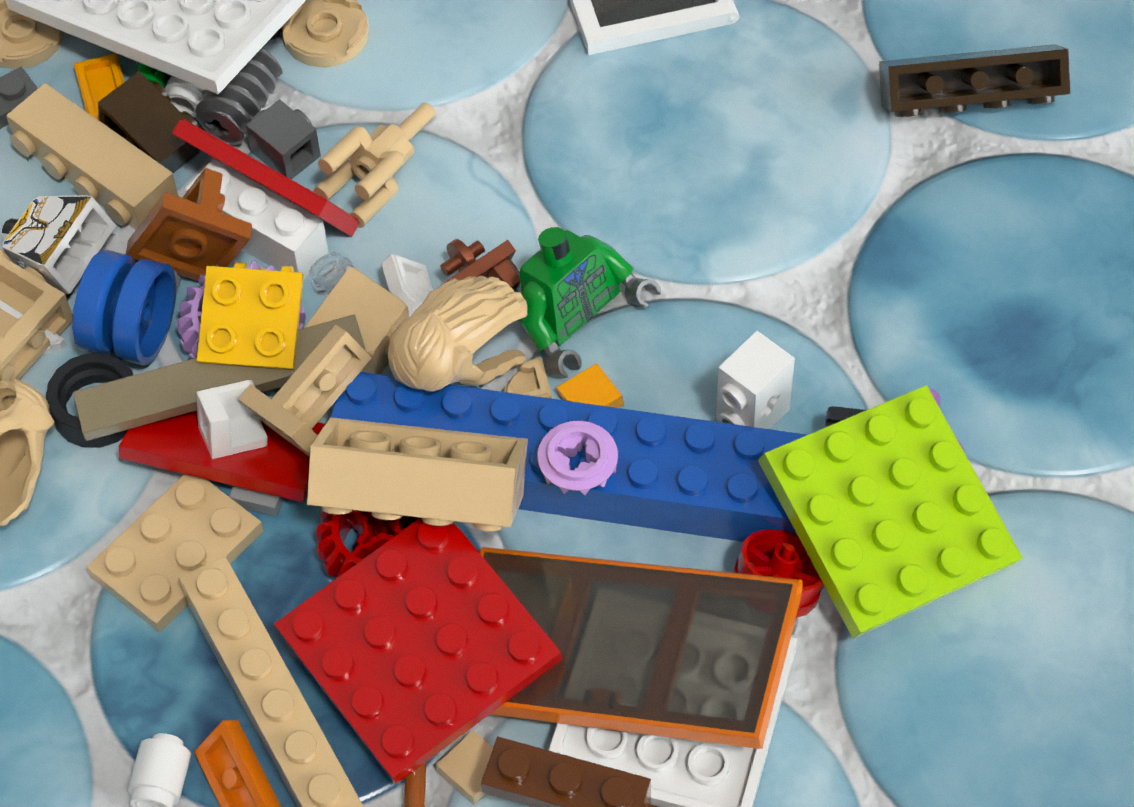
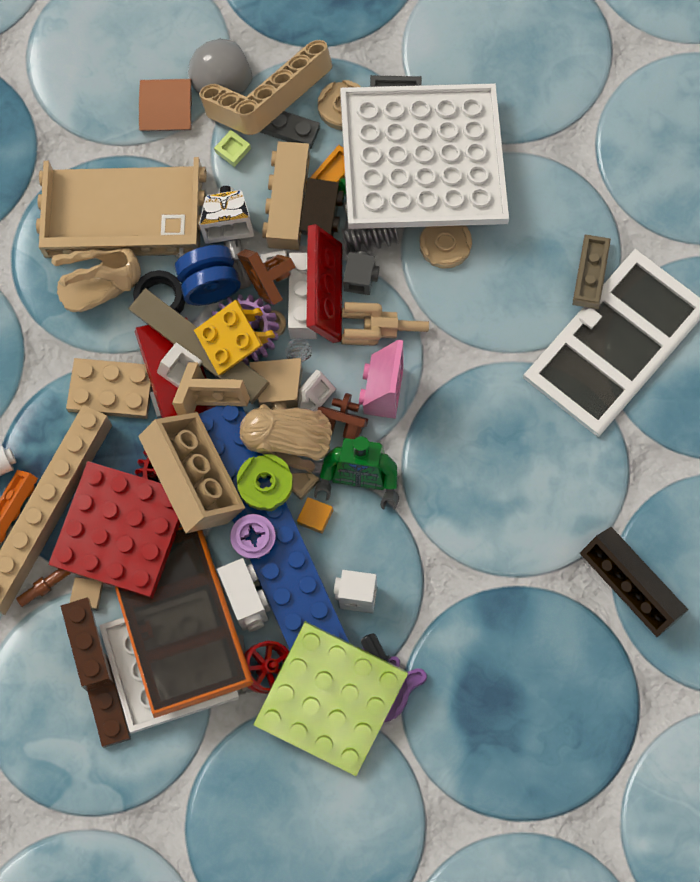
camera: 60 degrees right, 15 degrees up
(473, 177) = (383, 381): none -> bright pink slope
(501, 369) = (264, 466): none -> lime plate
(651, 526) = (248, 603): none -> white brick

